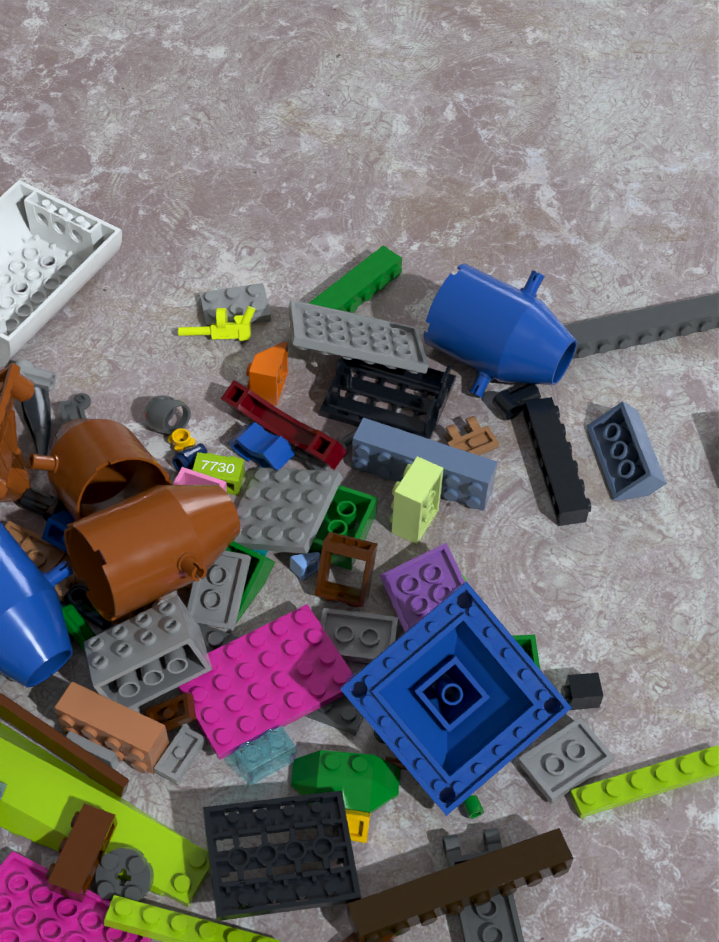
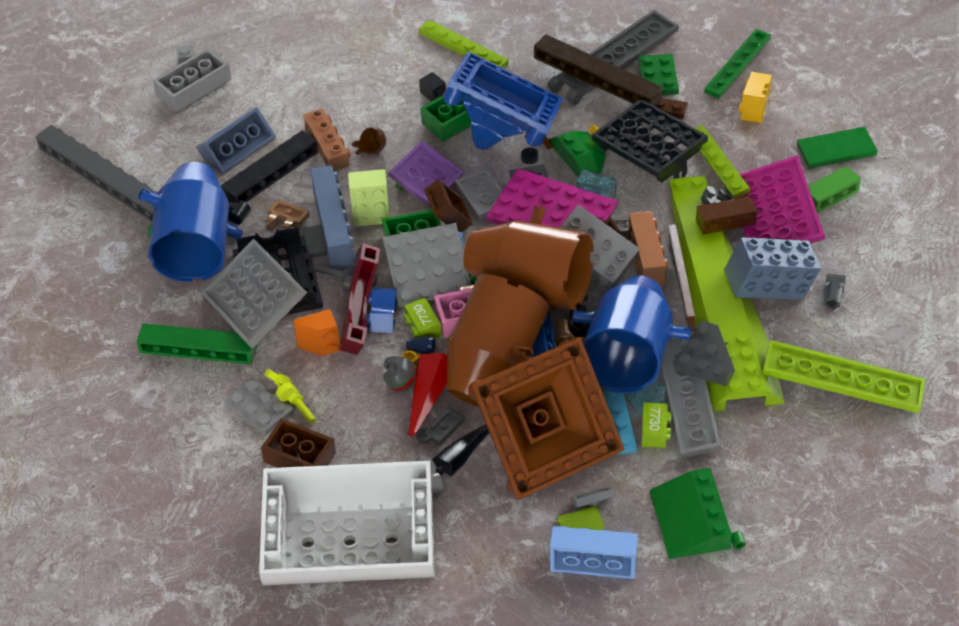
camera: 120 degrees left, 5 degrees down
(110, 409) = (430, 382): none -> red wedge
(147, 297) = (297, 447): none -> reddish brown brick
(529, 574) = (371, 141): none -> reddish brown piece
(566, 534) = (329, 144): none -> nougat brick

